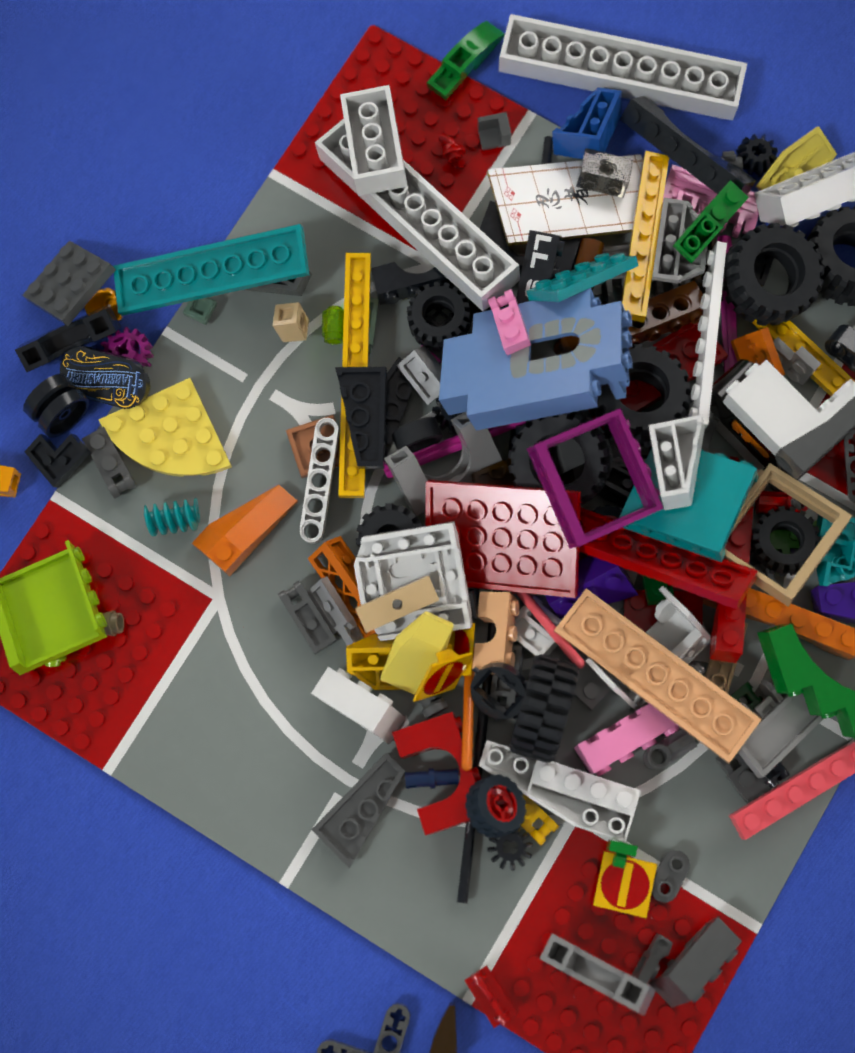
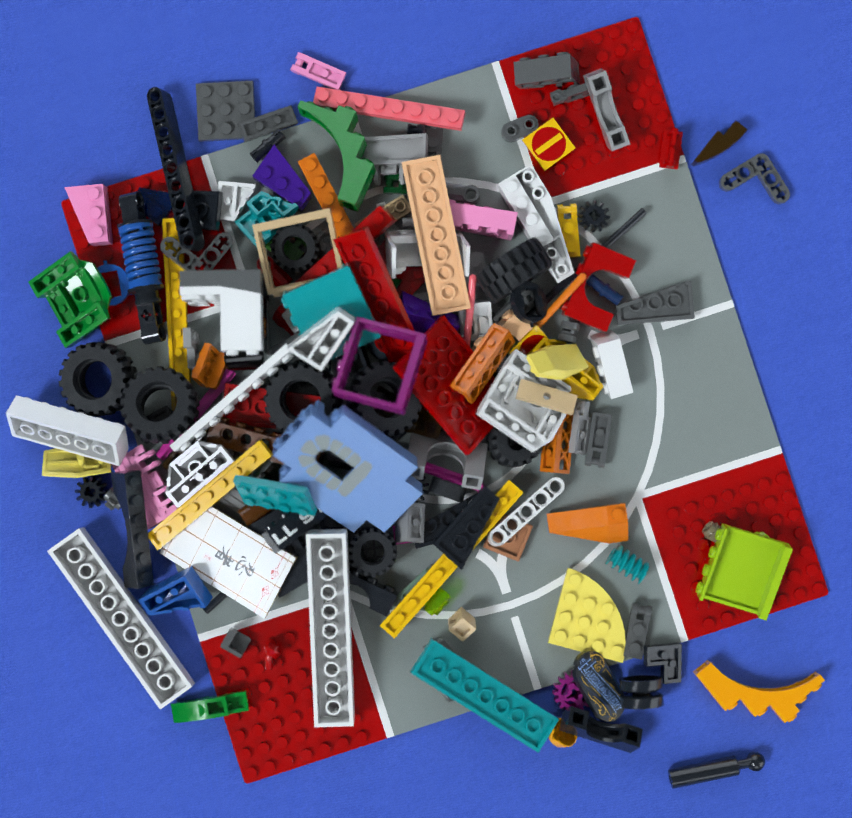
camera: 145 degrees left, 10 degrees up
(68, 282) = (572, 766): dark grey plate -> none
(200, 309) = (508, 679): sand green tile -> none
(373, 140) = (321, 691): white brick -> none
(443, 674) = (550, 336): yellow piece -> none
(494, 584) = (483, 362): none -> orange fence
(495, 806) = (595, 242): black wheel -> none
(509, 322) = (342, 504): bright pink plate -> none
(604, 173) = (187, 552): clear smoke brick -> none
(621, 851) = (537, 161): green tile -> none
(710, 221) = (168, 467): green slope -> none

